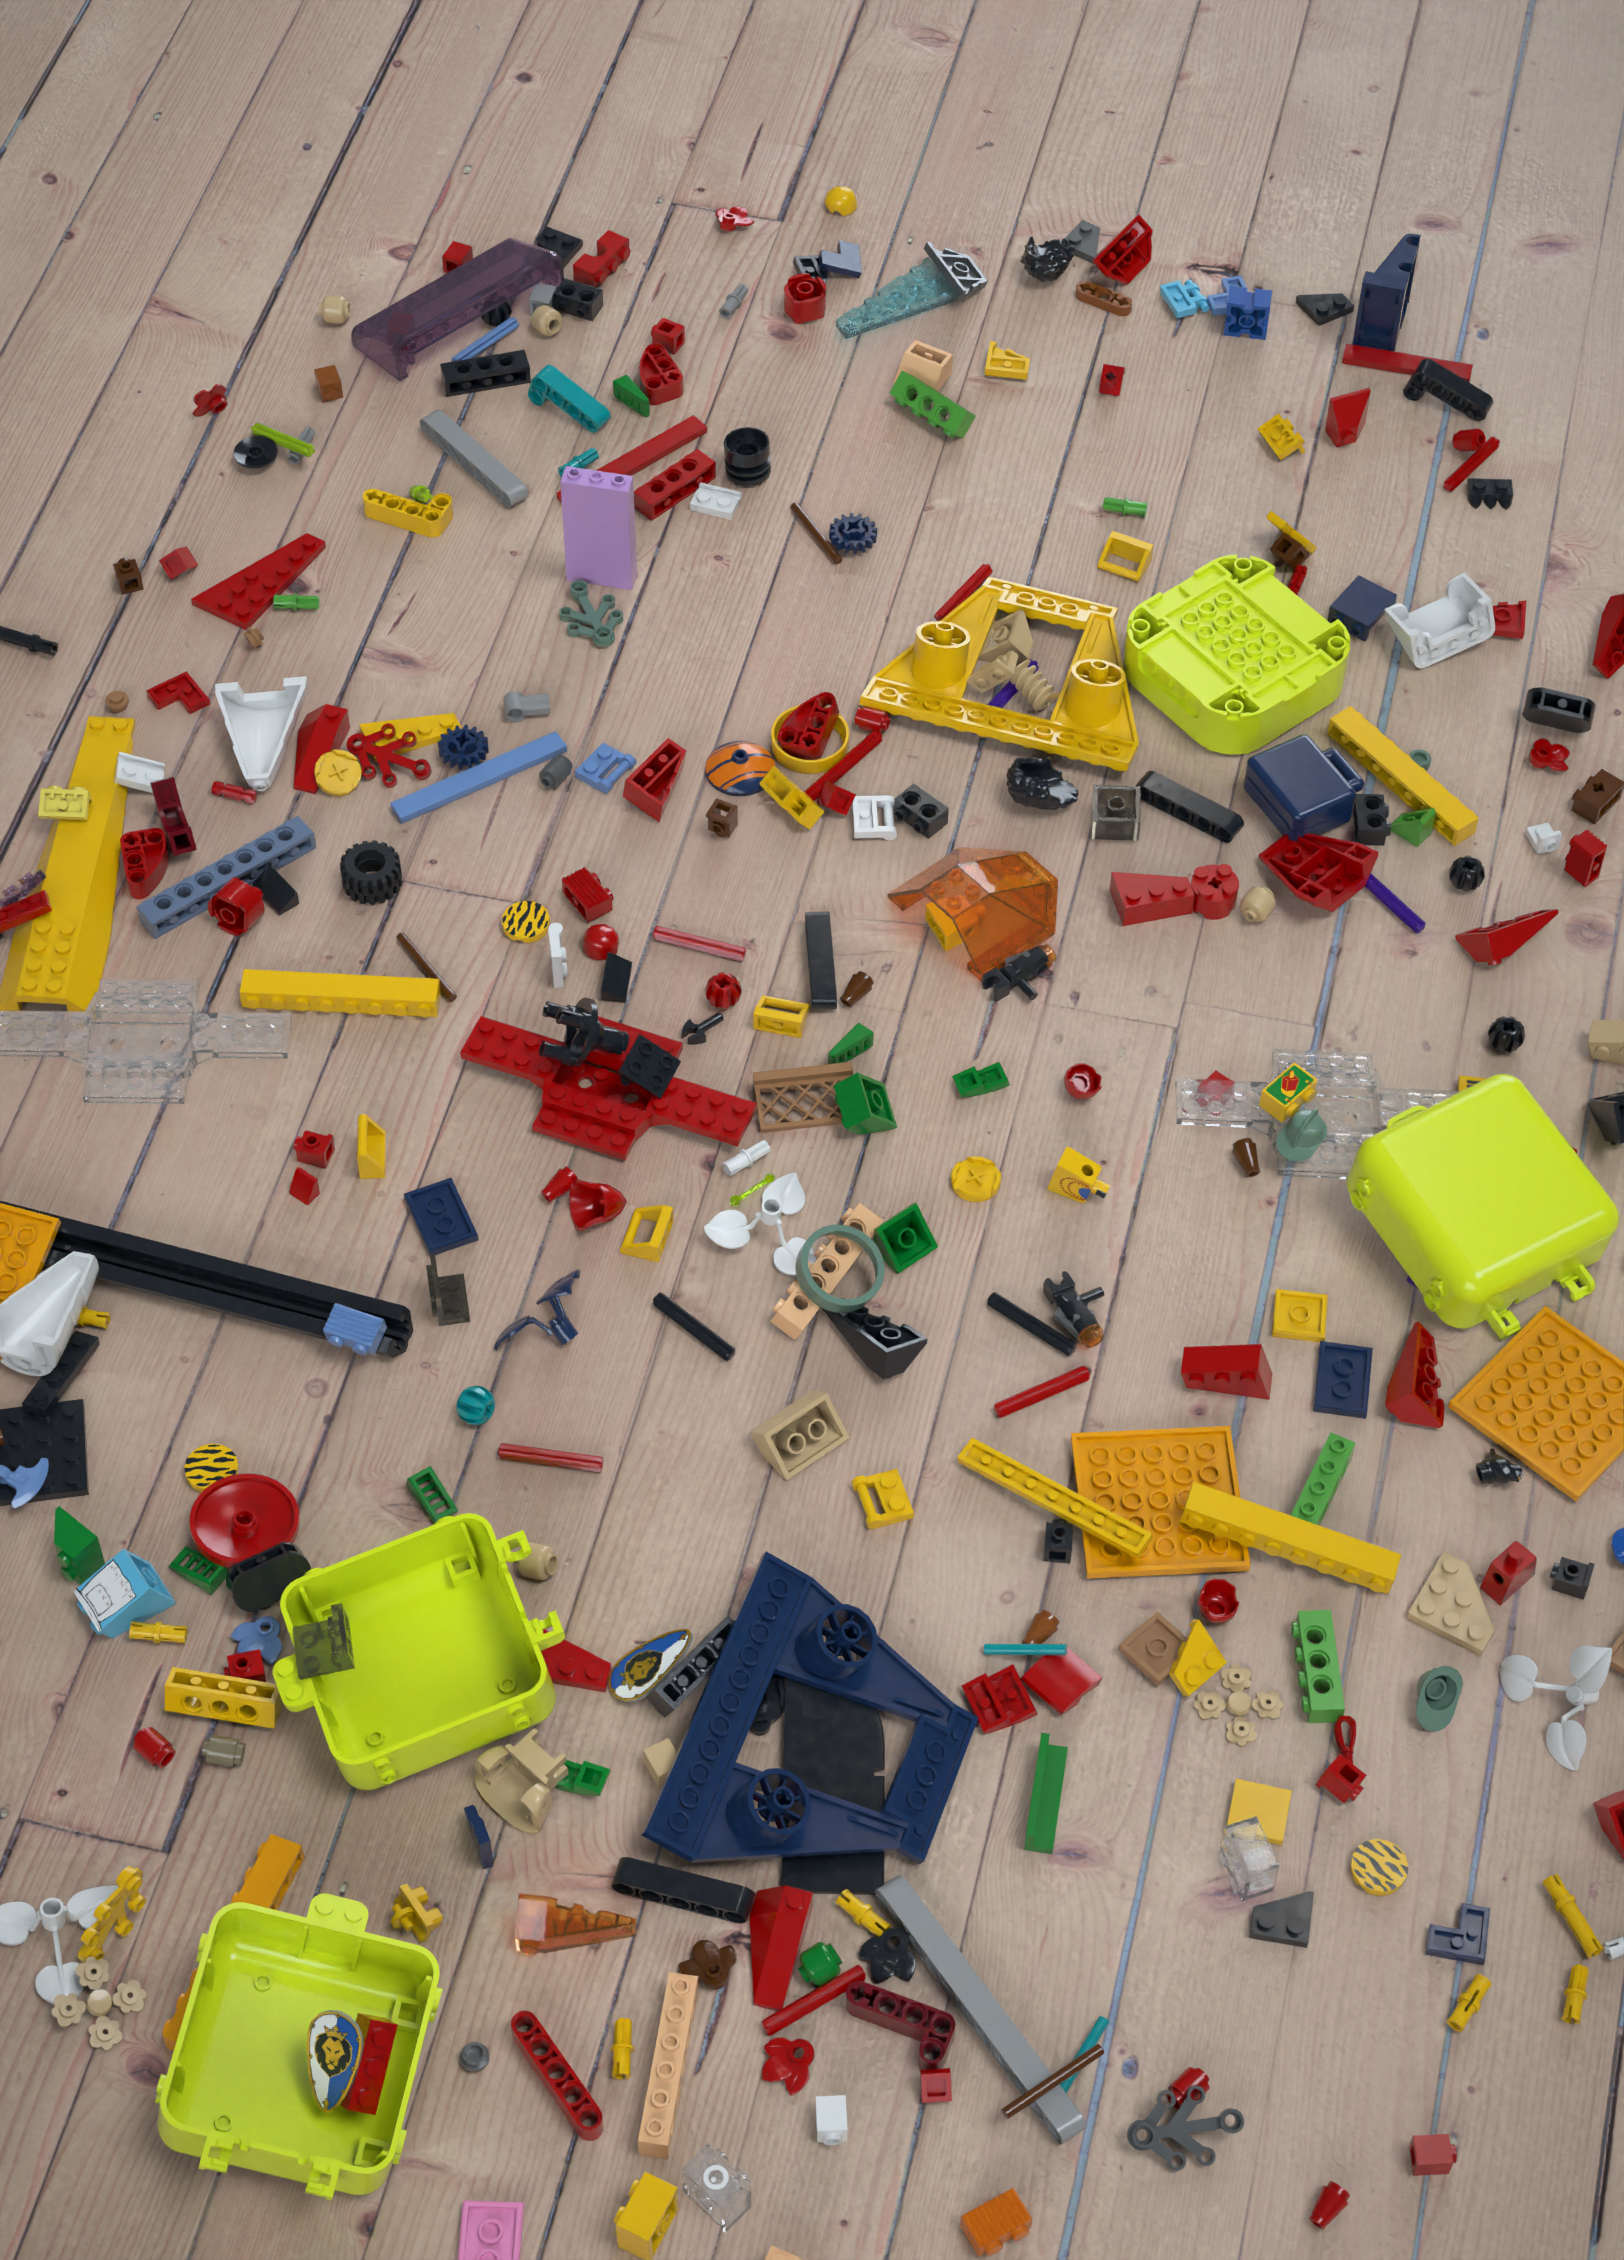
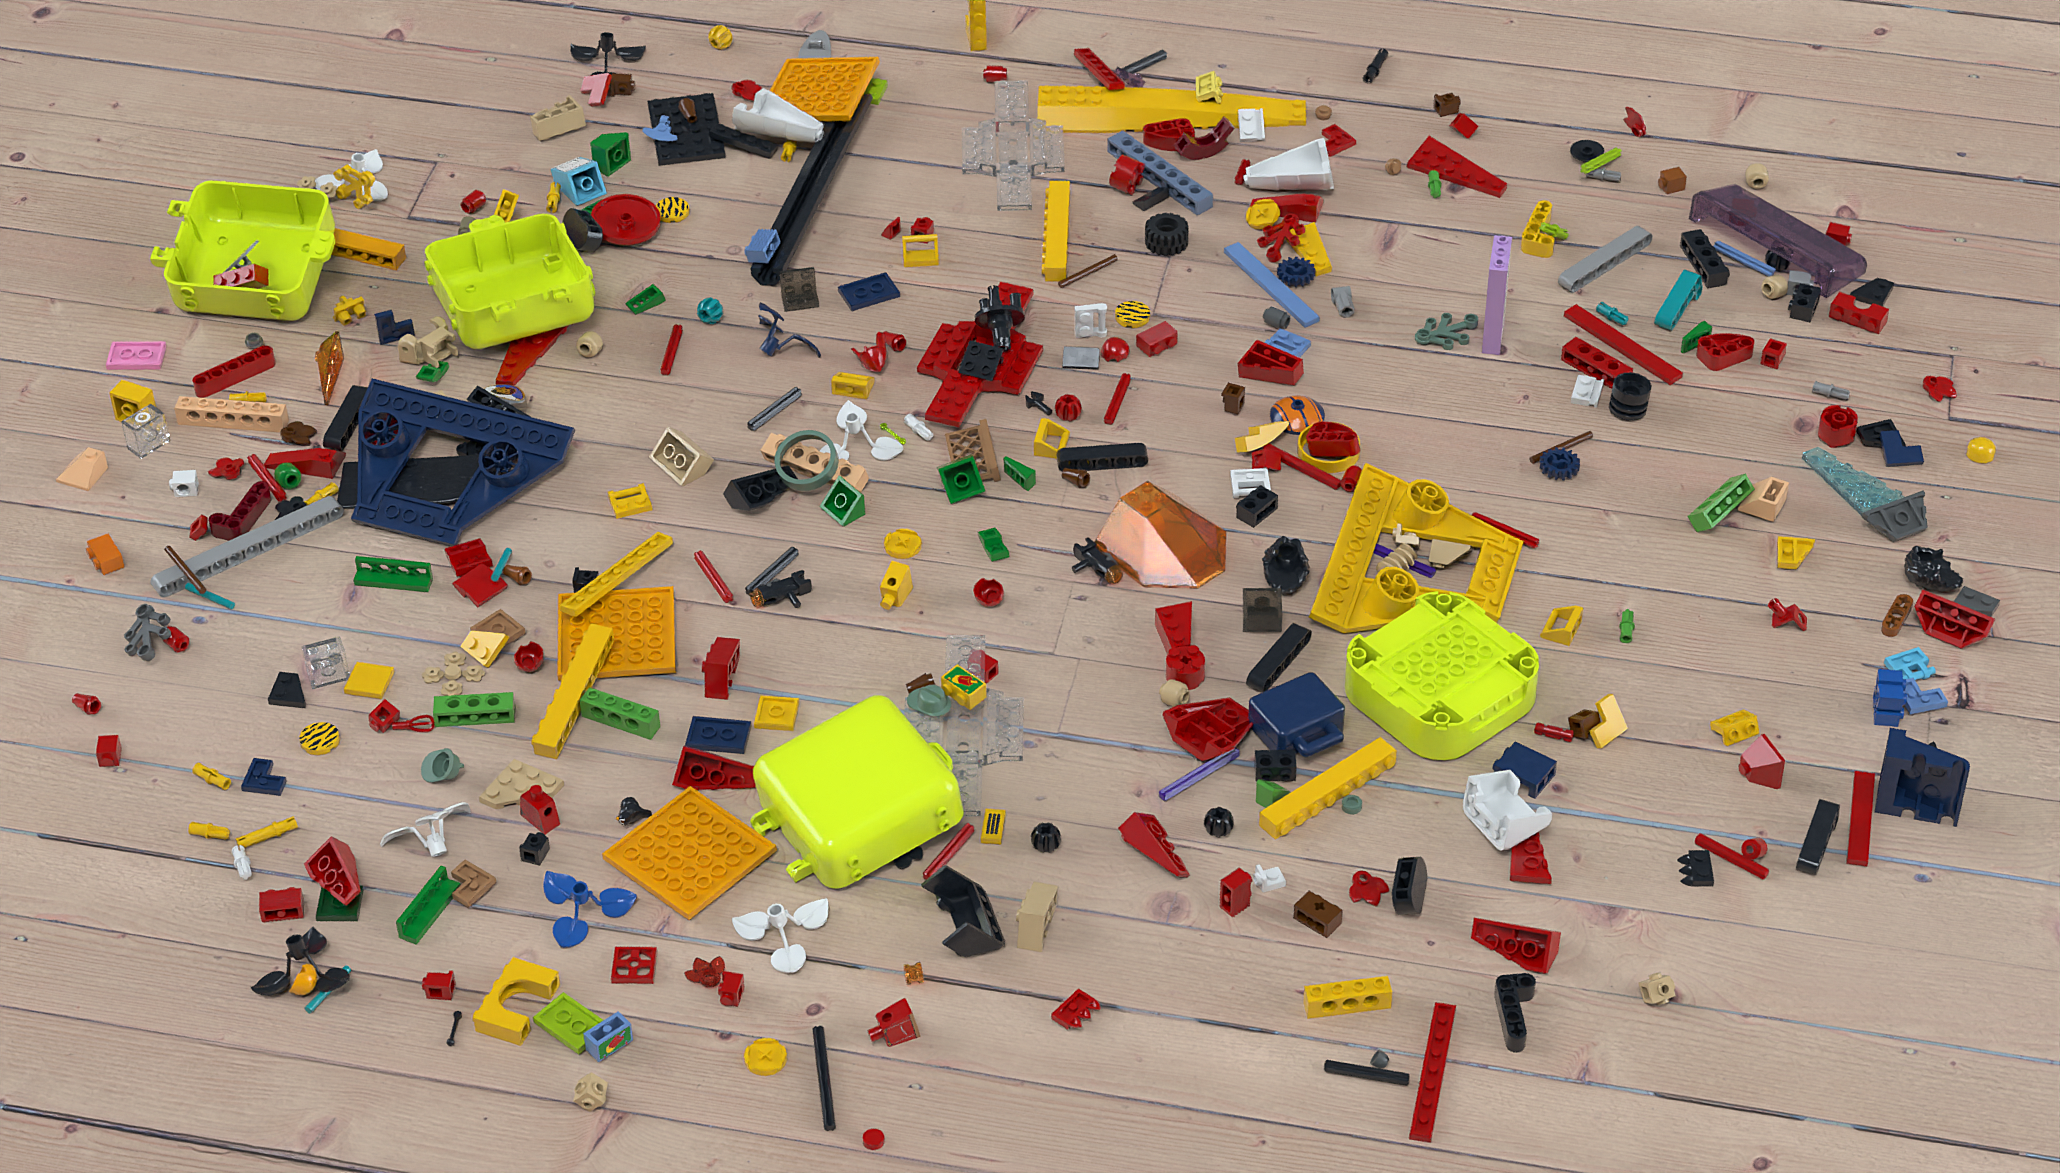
camera: 90 degrees right, 10 degrees down
(324, 1645) = (503, 228): clear smoke bracket -> none

